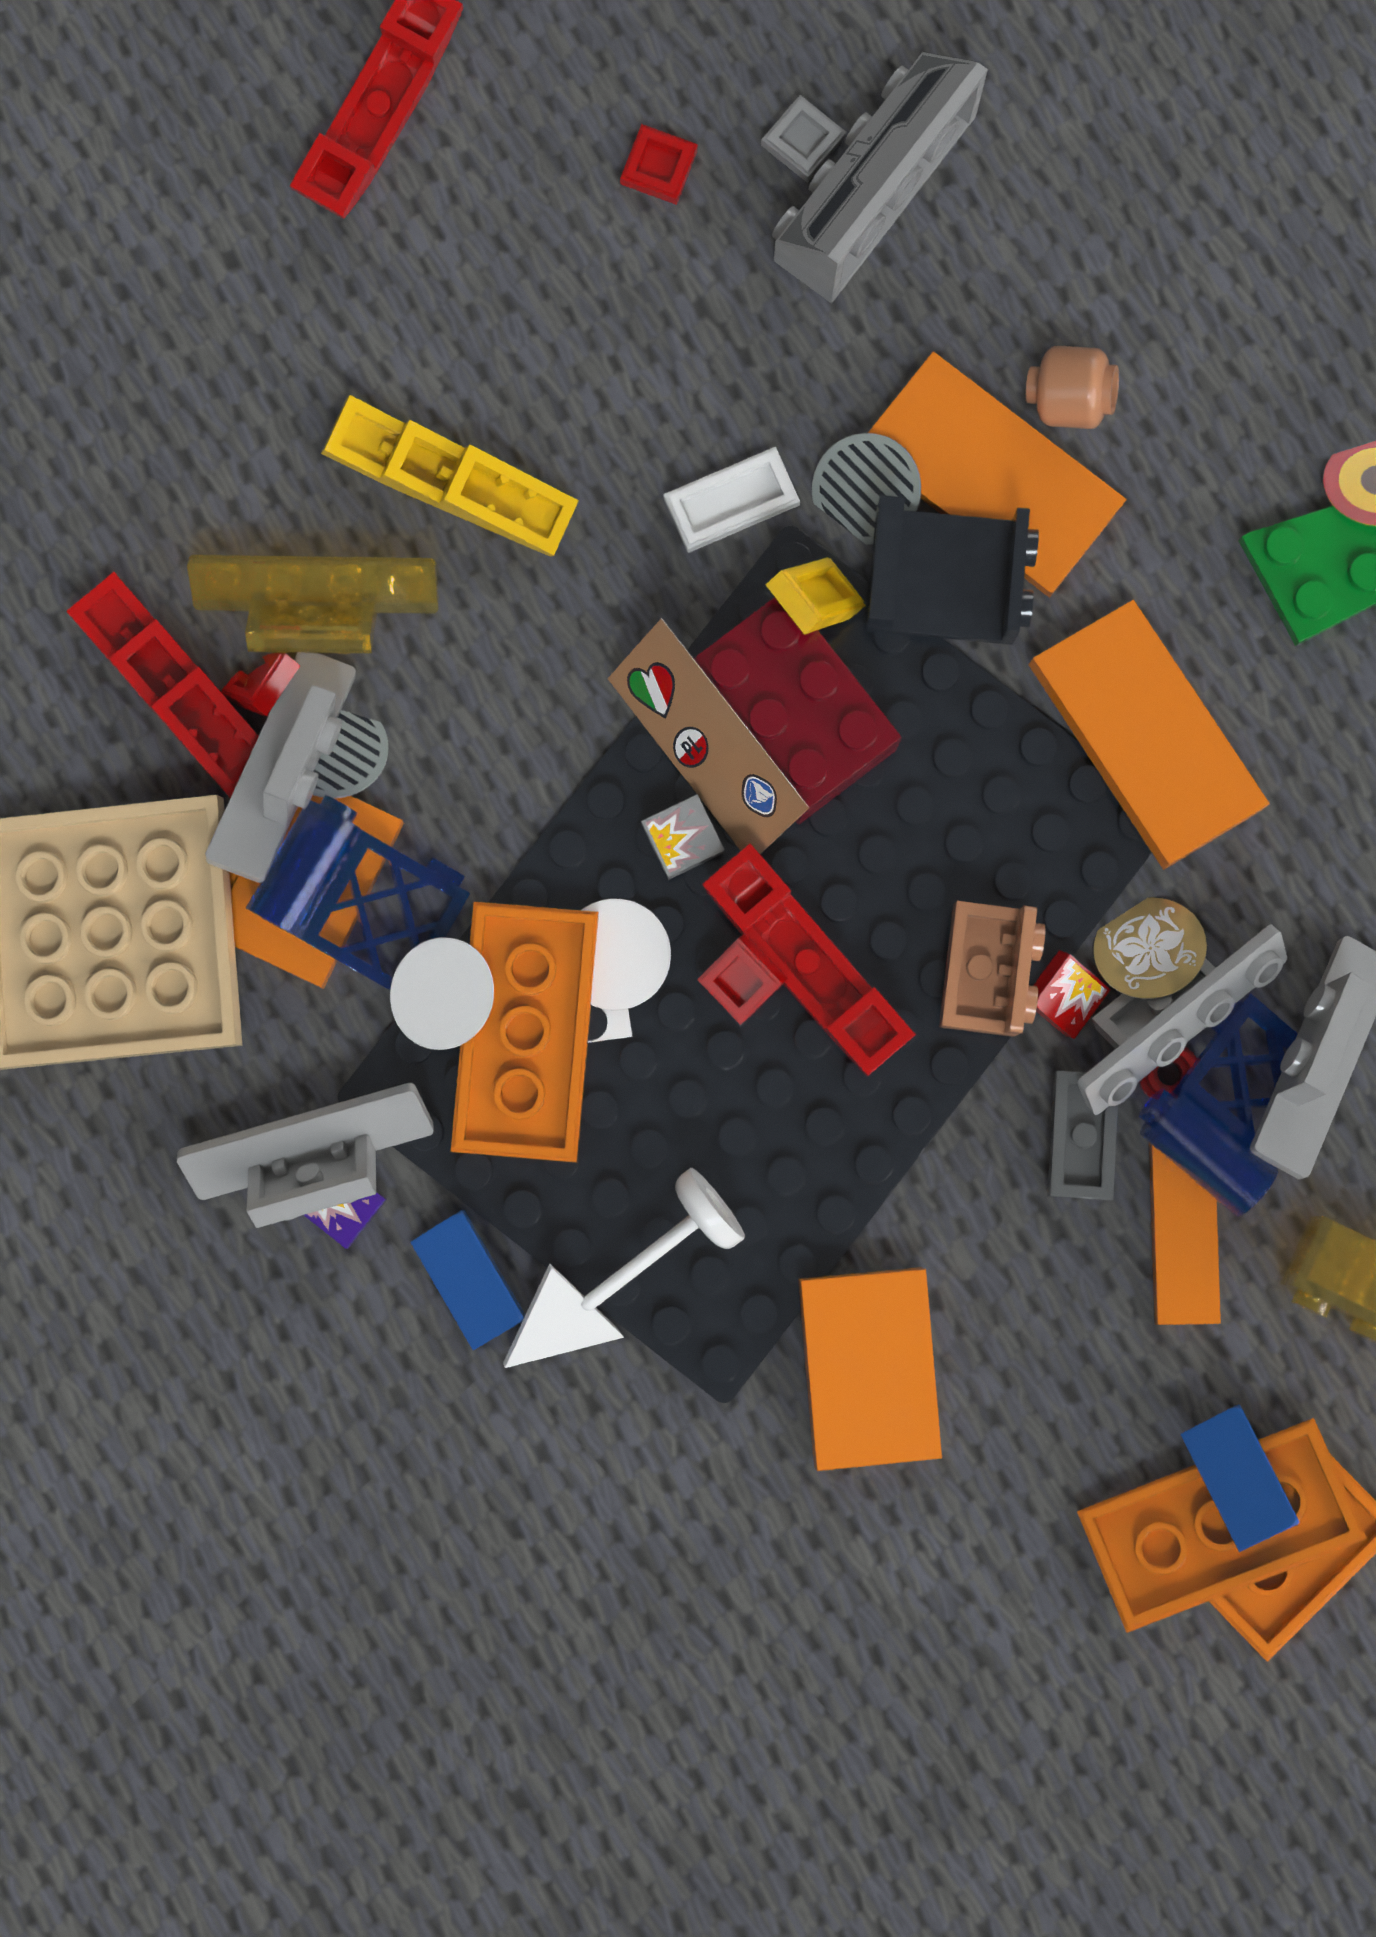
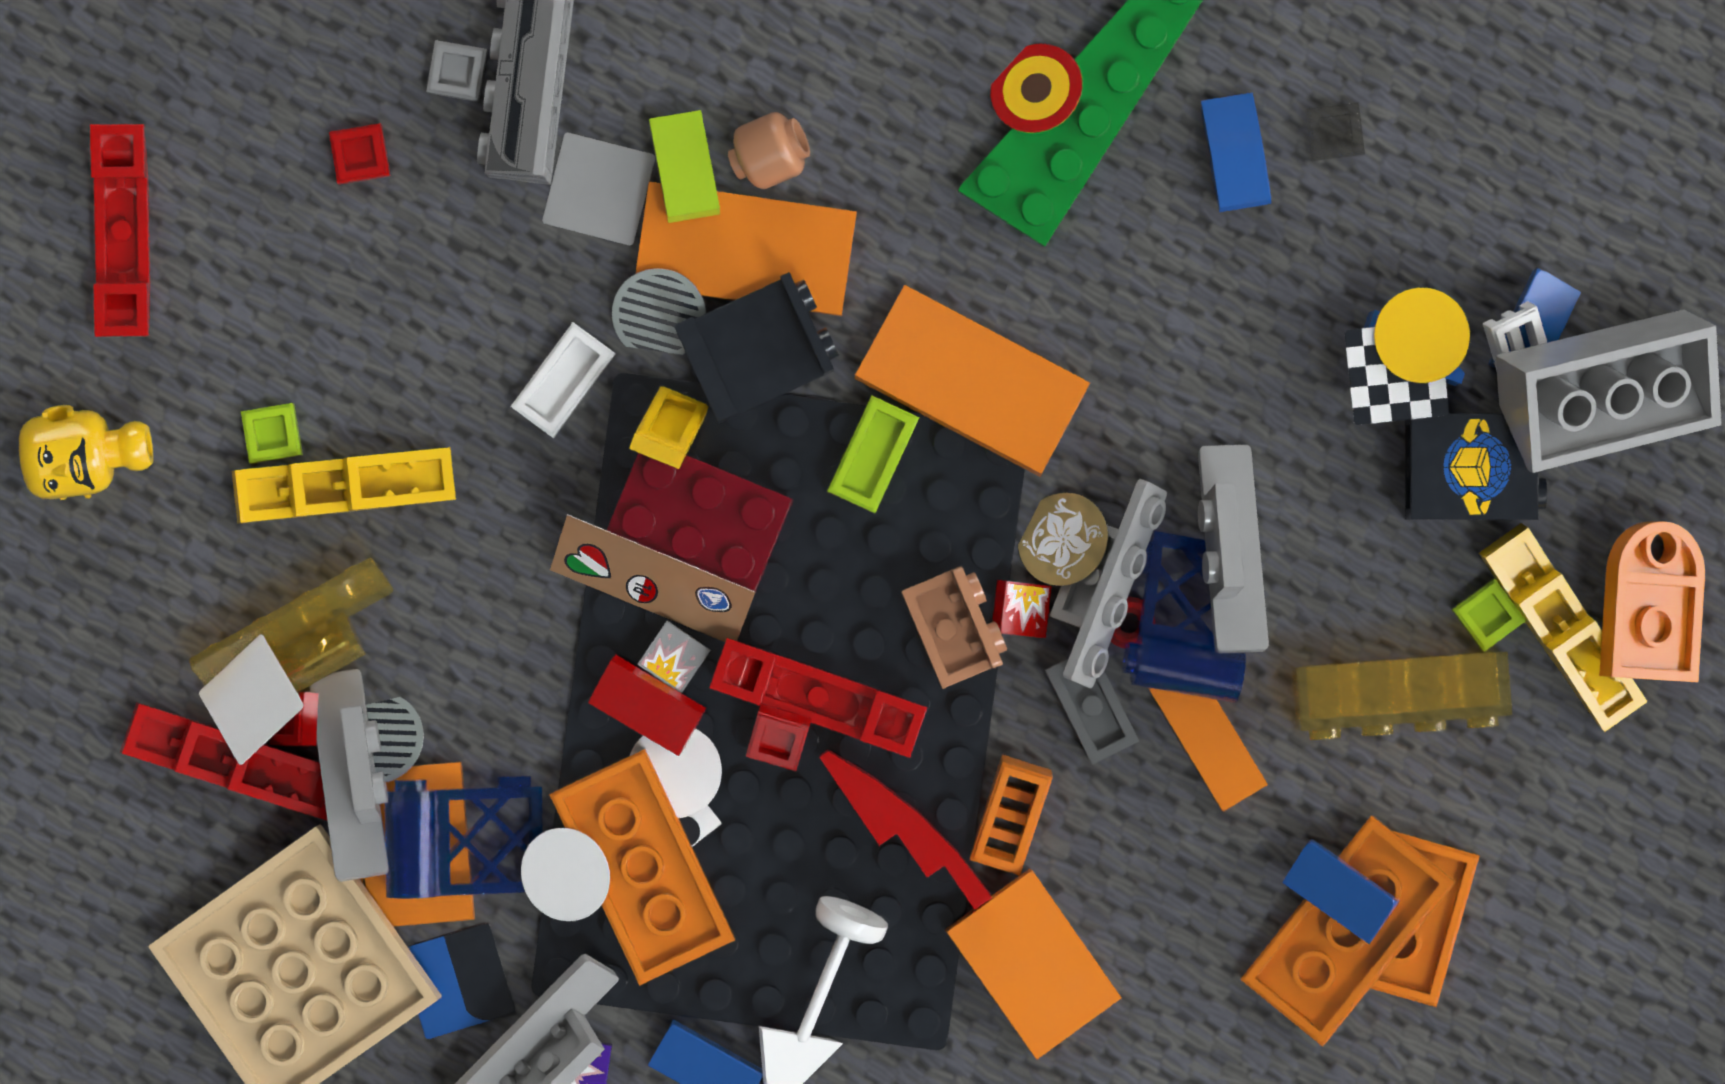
camera: 30 degrees left, 5 degrees up
(204, 290) = (76, 452): none -> yellow piece
(228, 630) = (251, 699): none -> white sticker
(279, 1046) = (468, 977): none -> sticker
(408, 386) = (271, 433): none -> lime tile
(627, 868) = (647, 705): none -> red tile
(812, 1123) = (889, 815): none -> red slope
(877, 334) = (598, 188): none -> light grey sticker
(973, 1163) = (998, 858): none -> orange slope
(978, 355) = (684, 166): none -> lime tile
(1005, 749) = (873, 454): none -> lime tile

